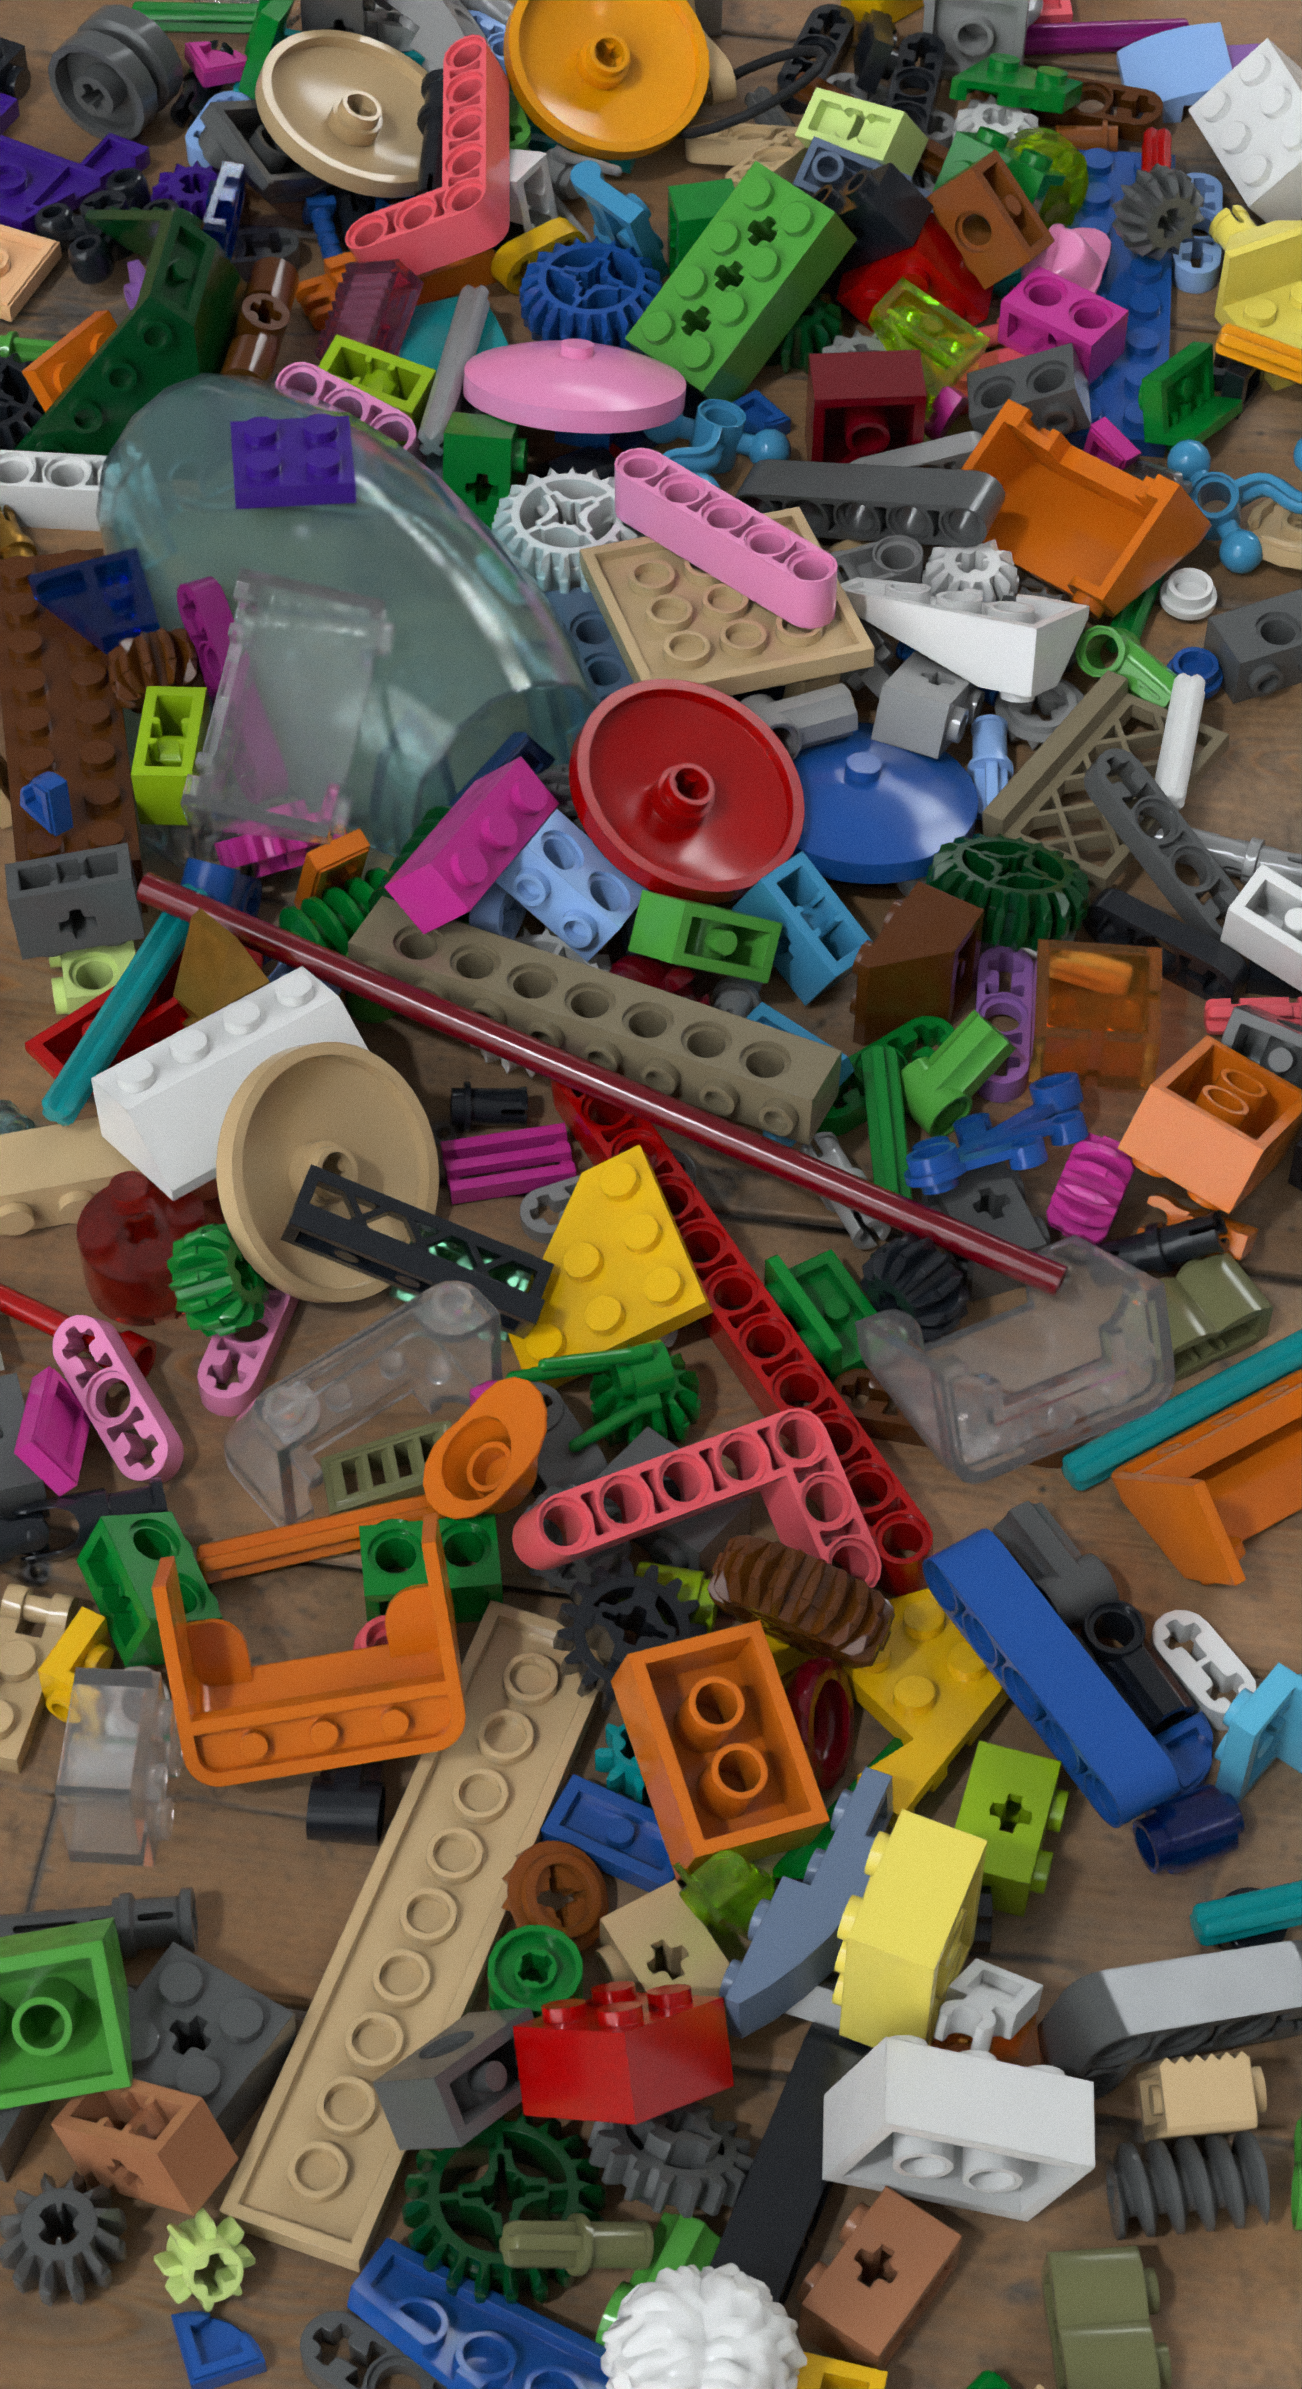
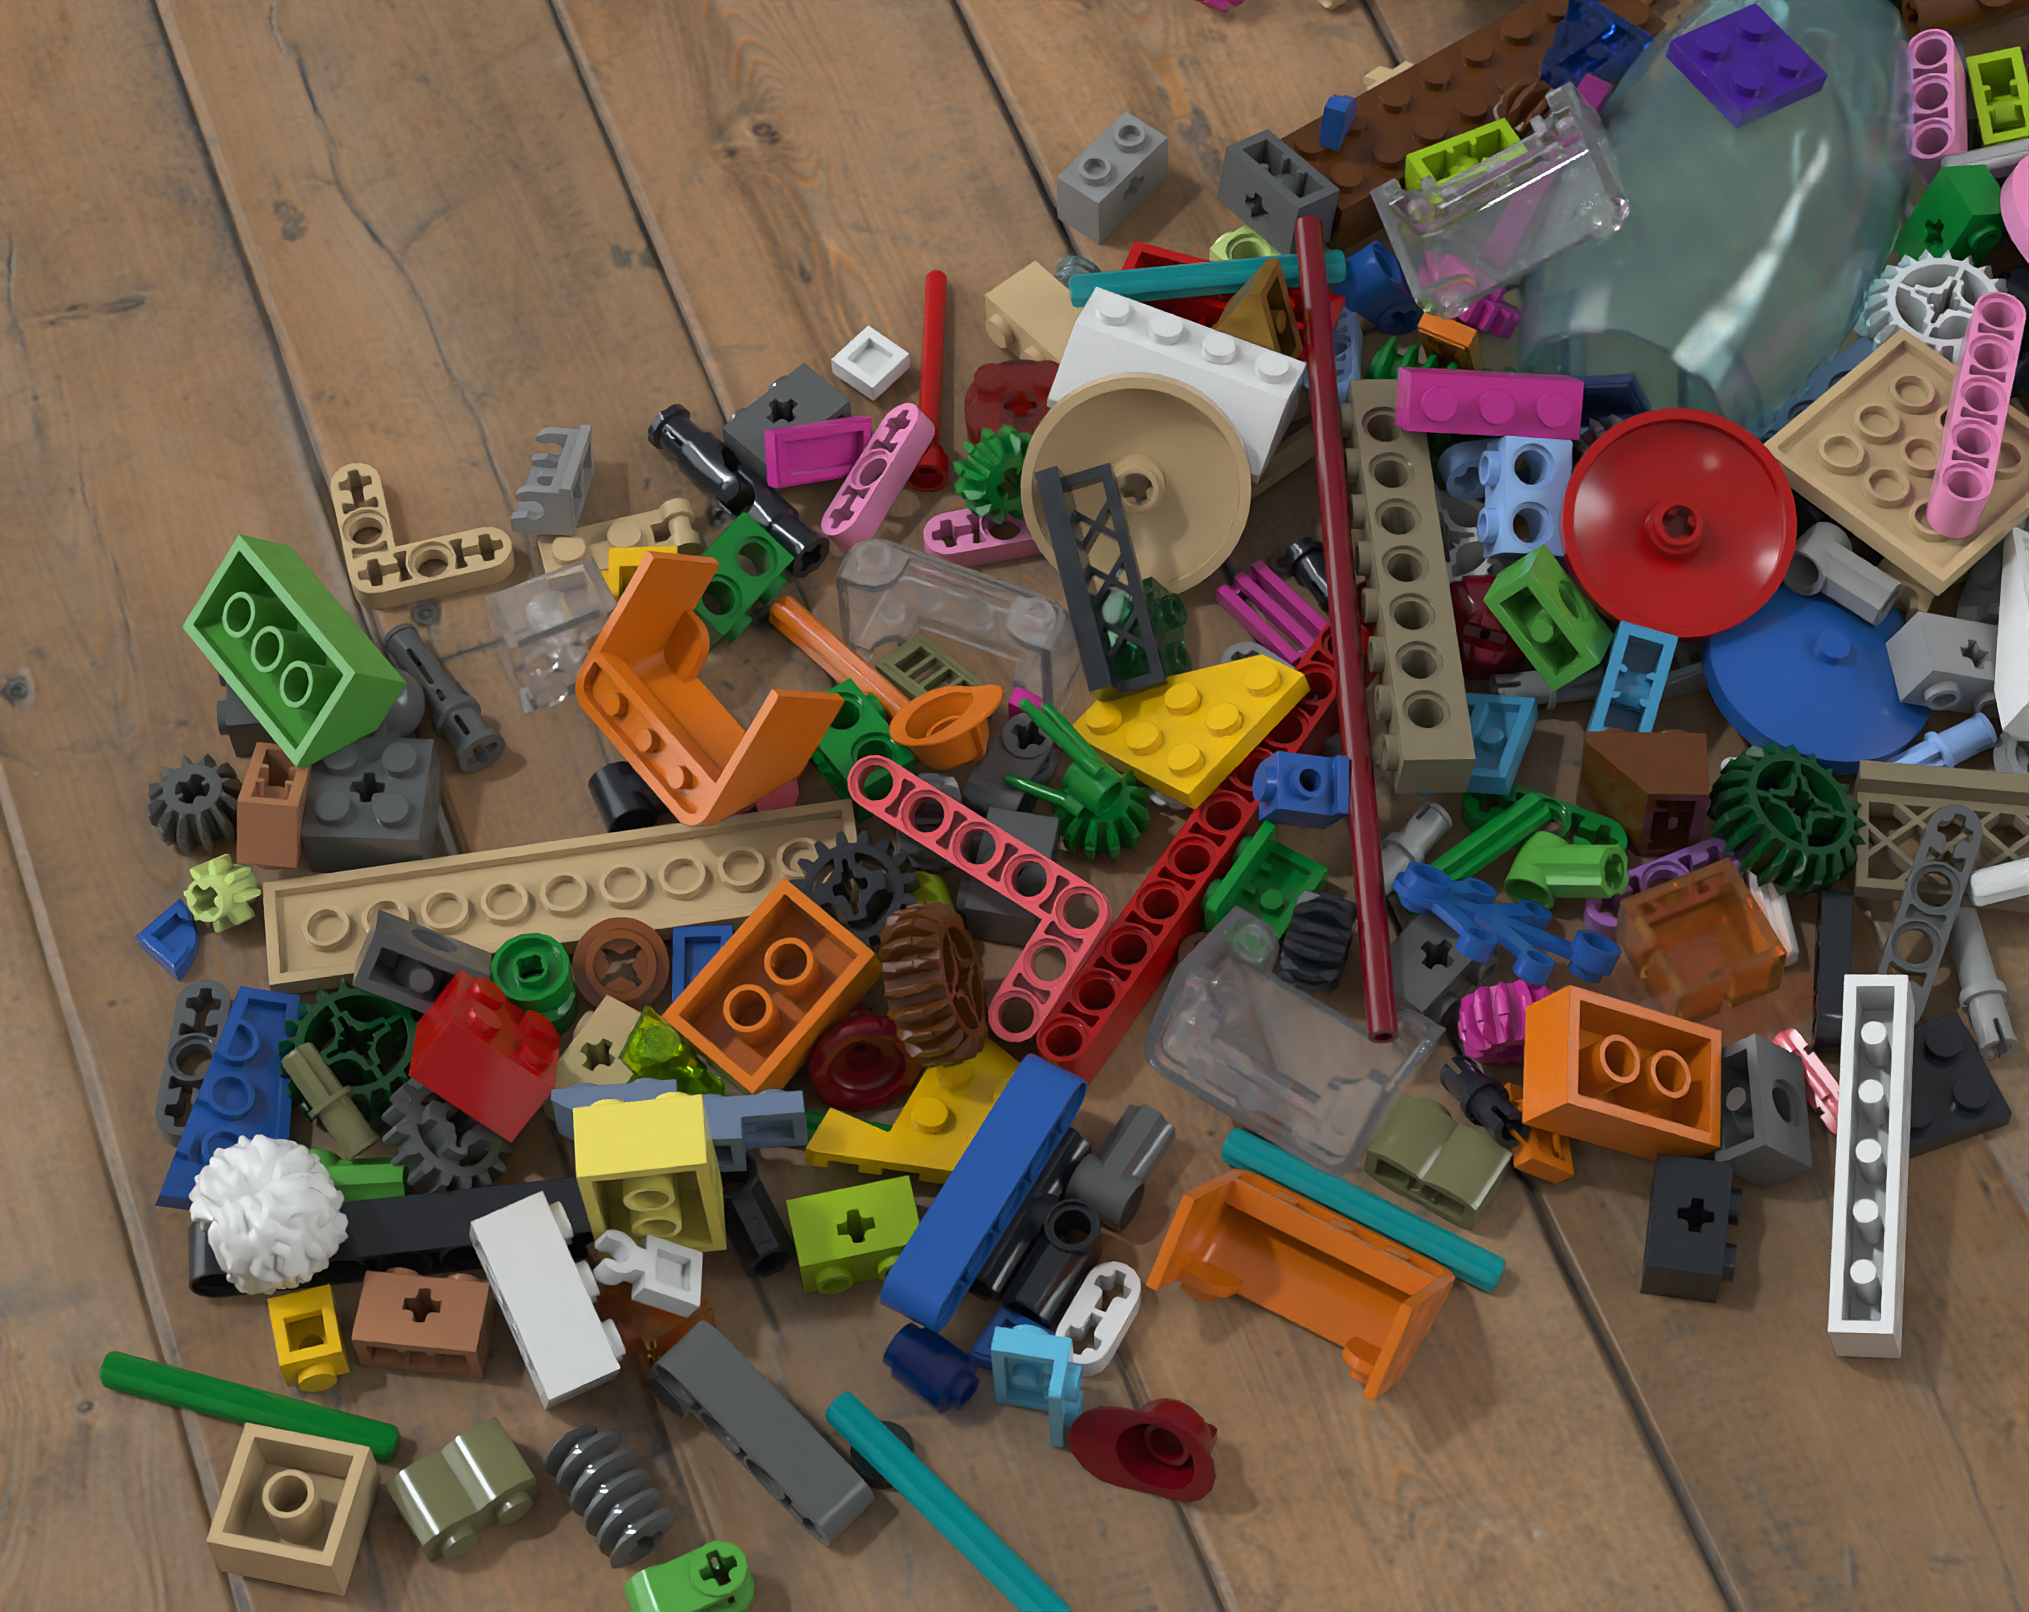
camera: 65 degrees right, 5 degrees up
(760, 1209) = (1316, 804): none -> blue brick
(1200, 2096) = (675, 1462): tan brick -> none

